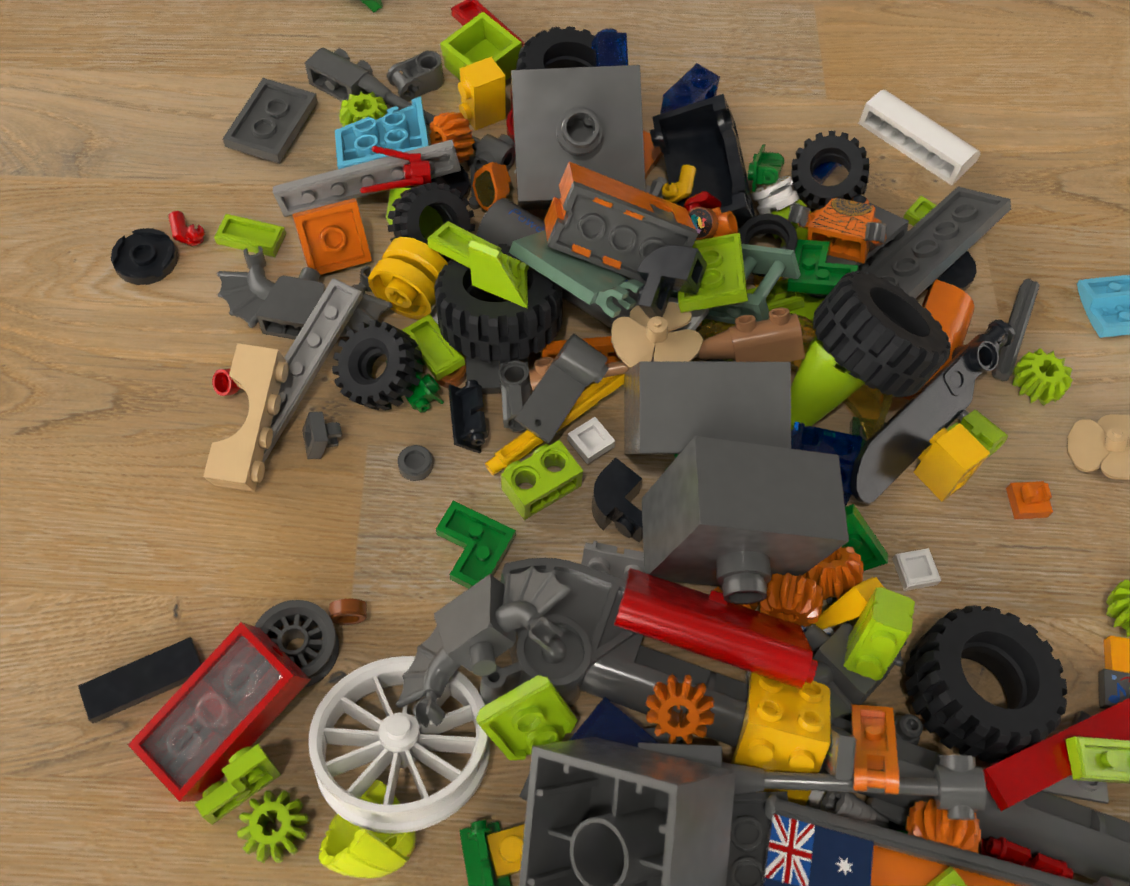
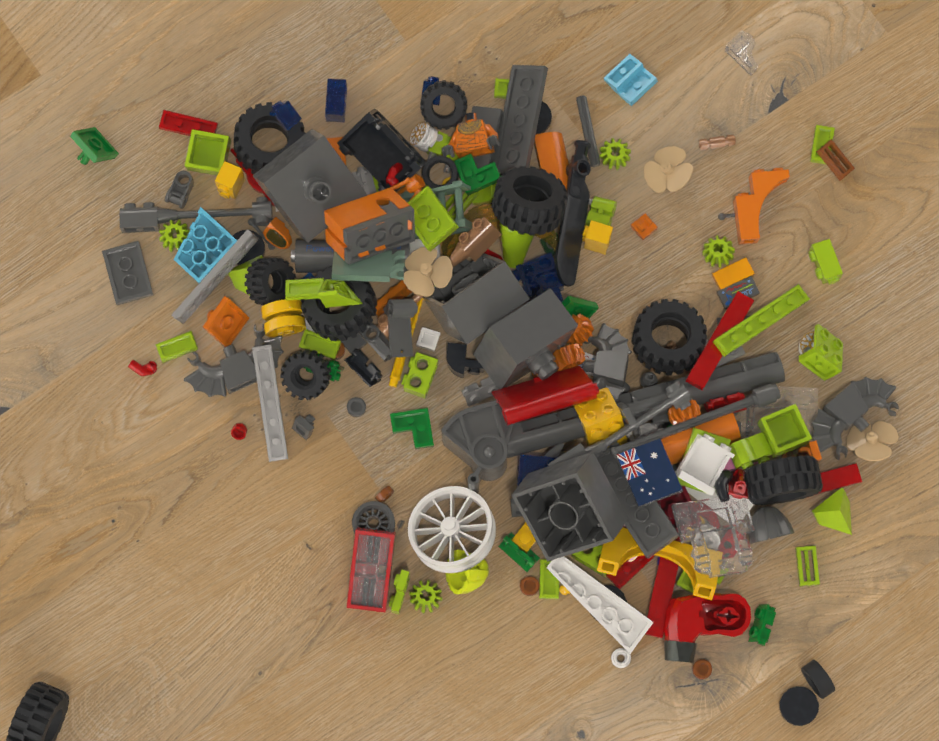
camera: 30 degrees left, 15 degrees up
(139, 680) = (322, 582): black tile -> none
(144, 256) = (136, 396): black tile -> none
(238, 459) = (281, 465): tan arch -> none
(415, 172) = (242, 259): red plant -> none
(456, 128) = (237, 221): orange gear -> none
(478, 630) = (452, 466): dark grey torso -> none
(527, 718) = (497, 485): lime tile -> none
(668, 270) = (411, 238): black brick -> none
(681, 188) = (376, 169): yellow arm -> none
(681, 723) = (557, 445): orange gear -> none
(705, 222) = (405, 190): tile -> none
(765, 168) = (408, 119): green hinge -> none
(849, 605) = (597, 341): yellow slope -> none
(875, 749) = (638, 401): orange plate -> none
(879, 633) = (613, 352): lime brick -> none
(916, 569) = (613, 299): white tile -> none
(918, 137) = (471, 37): white brick -> none

